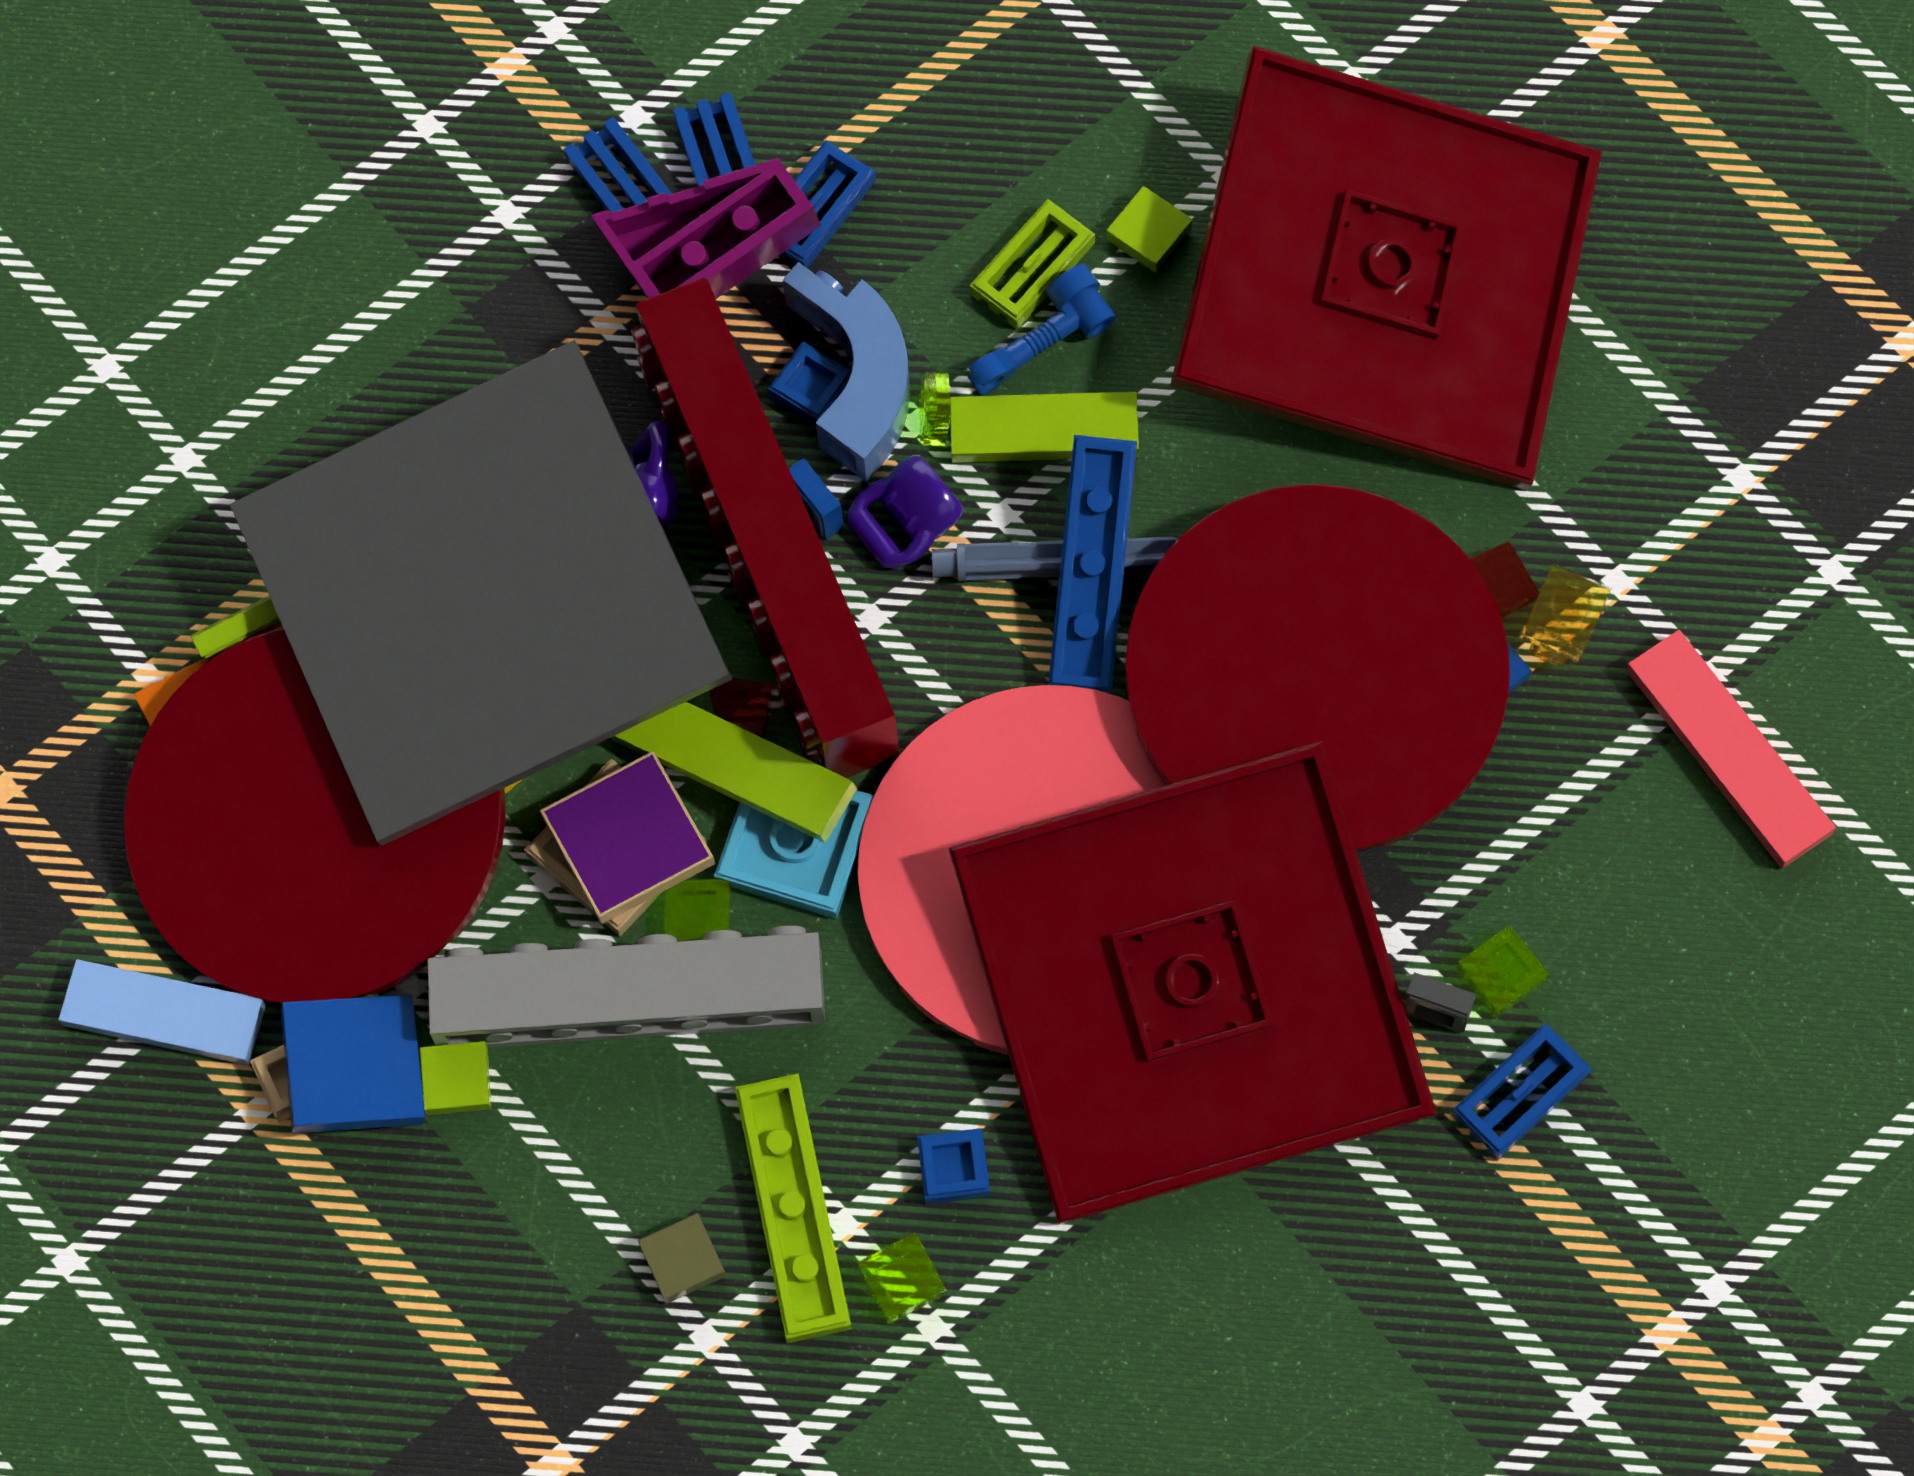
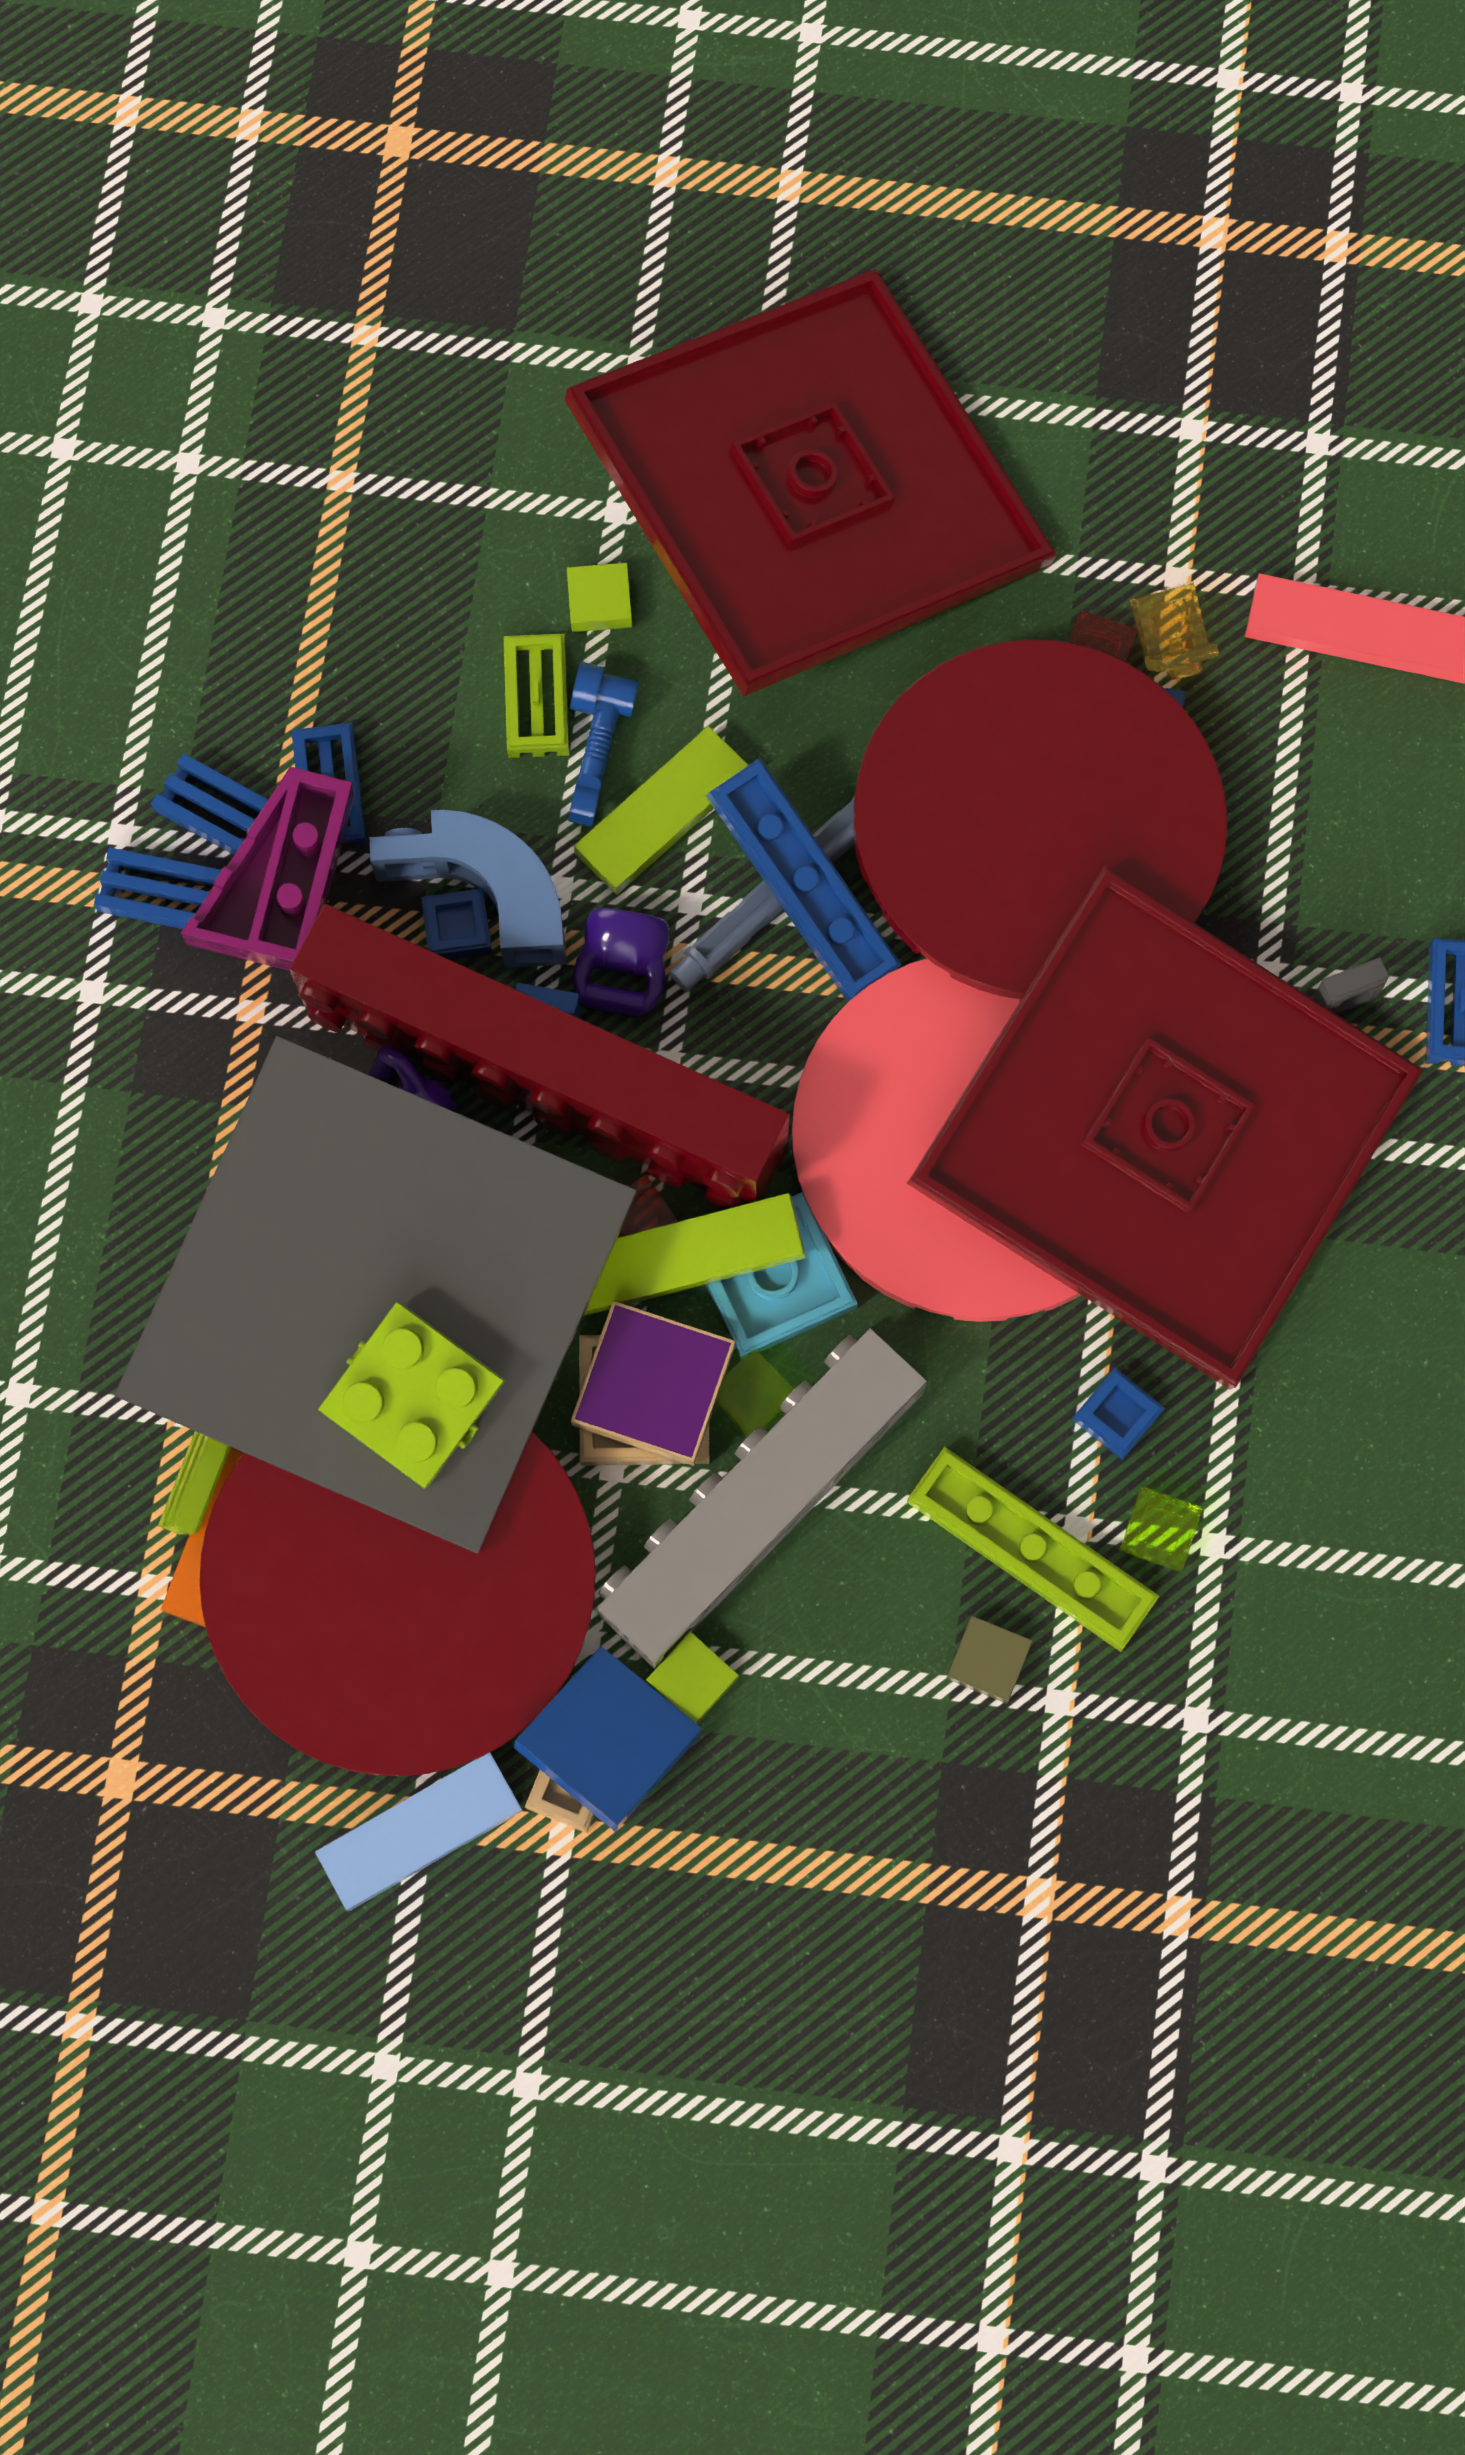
camera: 45 degrees left, 5 degrees up
(431, 683) = (412, 1395): none -> lime plate
(934, 408) = (570, 862): clear neon green tile -> none
(1502, 971) = (1367, 927): clear neon green tile -> none

